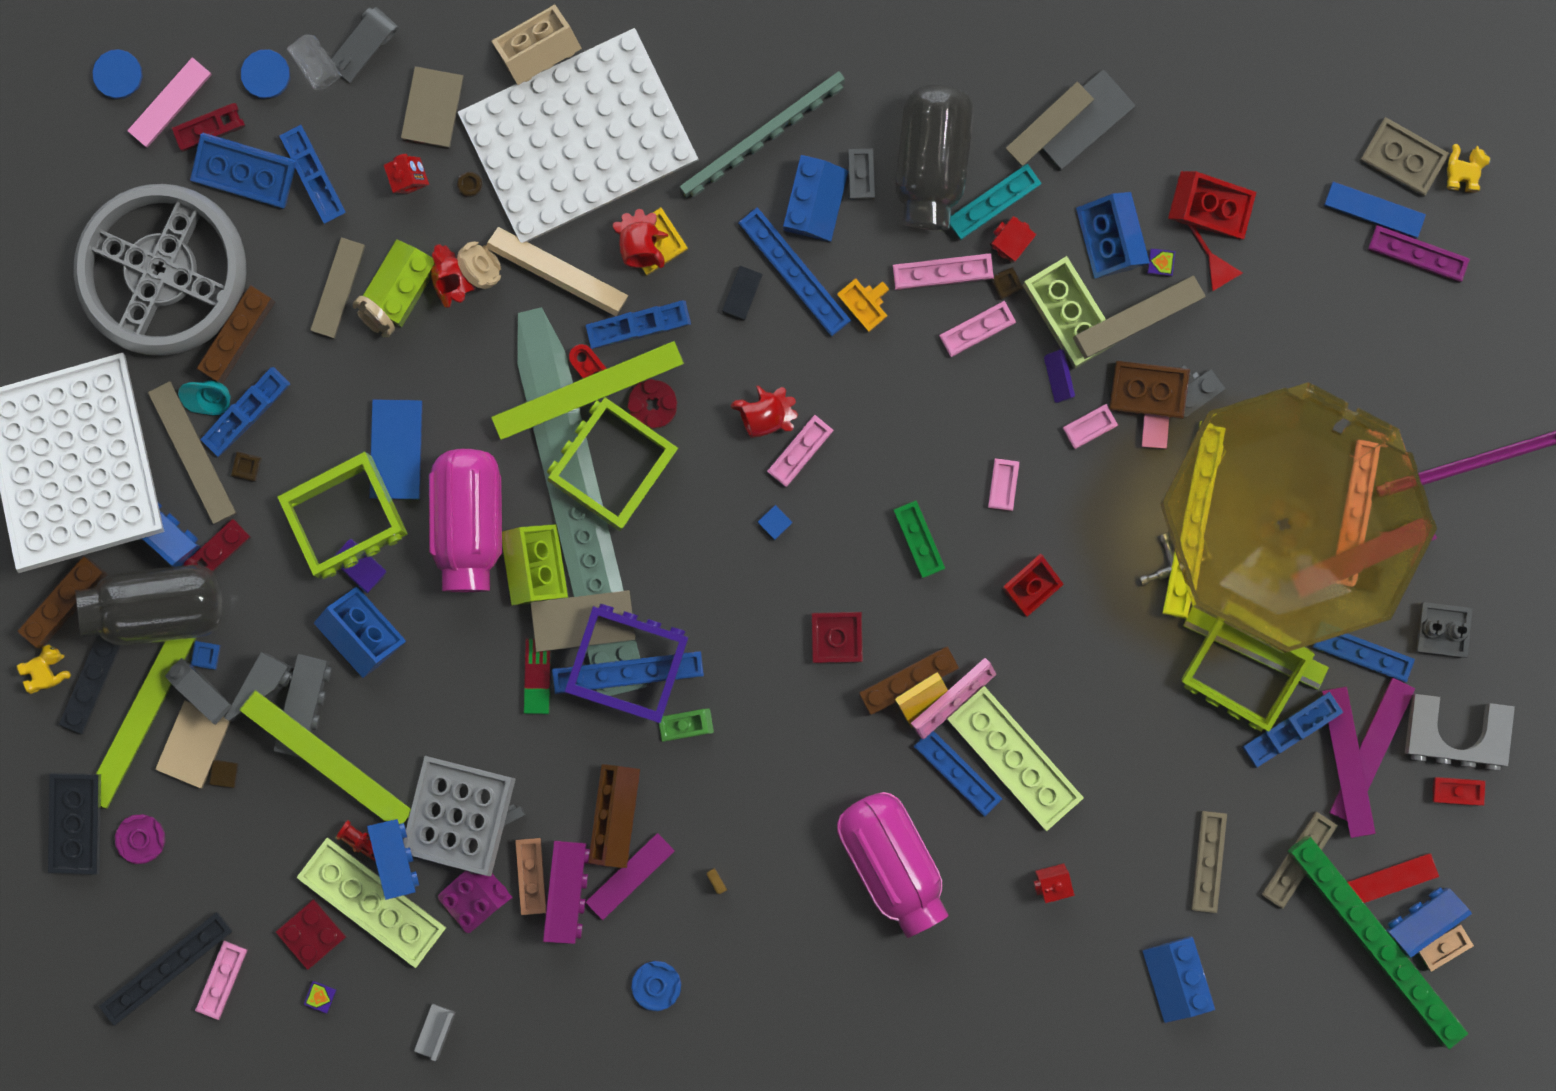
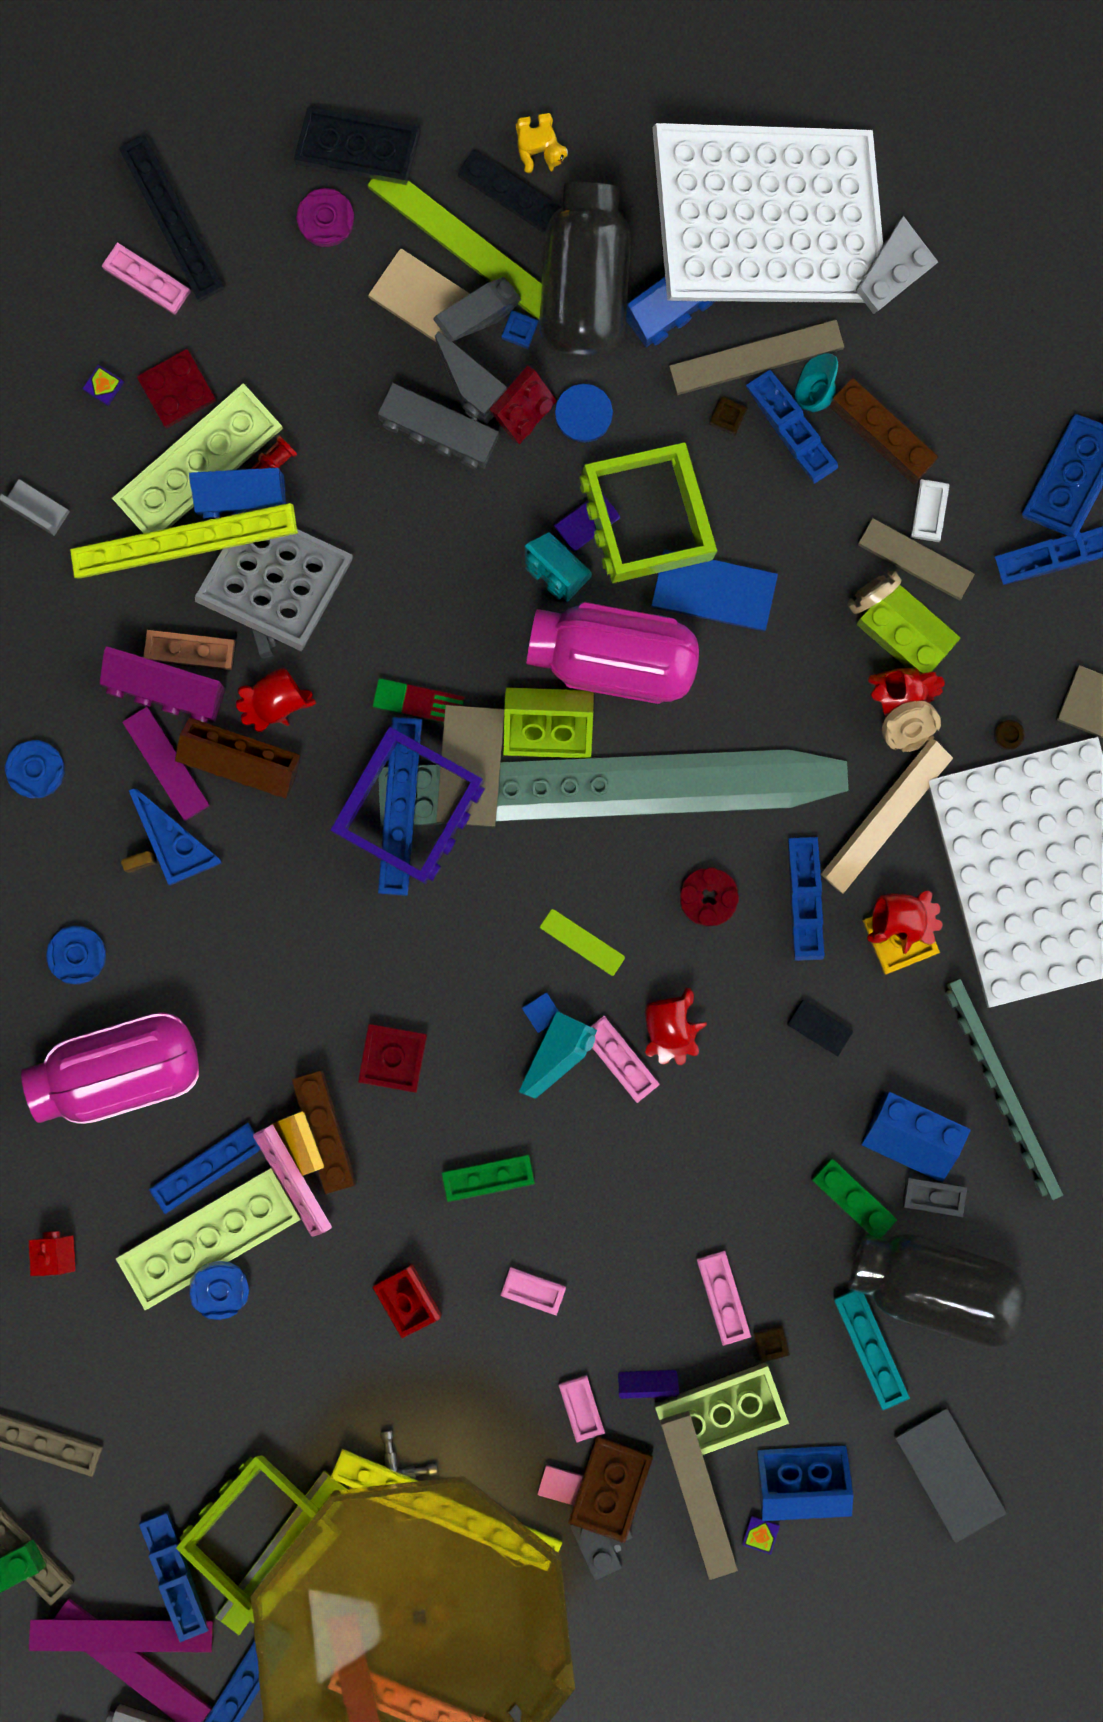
camera: 95 degrees right, 0 degrees up
(61, 603) = (605, 167): reddish brown brick -> none
(91, 349) = (896, 267): none -> light grey wing
(131, 332) = (1023, 290): light grey wheel -> none
(221, 546) = (641, 368): dark red plate -> none
(224, 773) = (380, 325): dark brown tile -> none
(267, 587) = (583, 413): none -> blue tile
(271, 637) = (523, 405): none -> dark red plate
(294, 284) = (930, 510): none -> white tile
(324, 758) = (373, 435): lime tile -> none
(359, 631) = (511, 508): blue slope -> none
(402, 583) = (556, 566): none -> teal slope
(406, 174) = (1035, 662): red head -> none
(441, 898) = (184, 541): none -> neon yellow tile
(473, 898) = (176, 584): magenta bracket -> none
(560, 797) = (272, 700): none -> red piece
(571, 447) = (675, 791): lime window -> none
(587, 390) = (739, 824): lime tile -> none
(590, 365) = (767, 832): red plate -> none
(686, 725) = (327, 863): bright green slope -> none
(699, 853) = (174, 847): none -> blue wing
(710, 501) = (582, 942): none -> lime sticker
(794, 272) = (833, 1094): blue tile -> none
(803, 500) = (560, 1050): none -> teal slope
(804, 918) = (76, 955): none -> blue tile
(865, 302) = (780, 1170): light orange hinge -> none
(876, 239) = (854, 1199): none -> green plate
(943, 271) = (799, 1271): bright pink tile -> none
(1012, 239) = (822, 1361): red head -> none
(1049, 124) = (952, 1435): dark tan tile -> none
(1055, 741) = (218, 1290): none -> blue tile
(1212, 204) = (818, 1611): red slope -> none
(1220, 271) = (737, 1603): red piece -> none

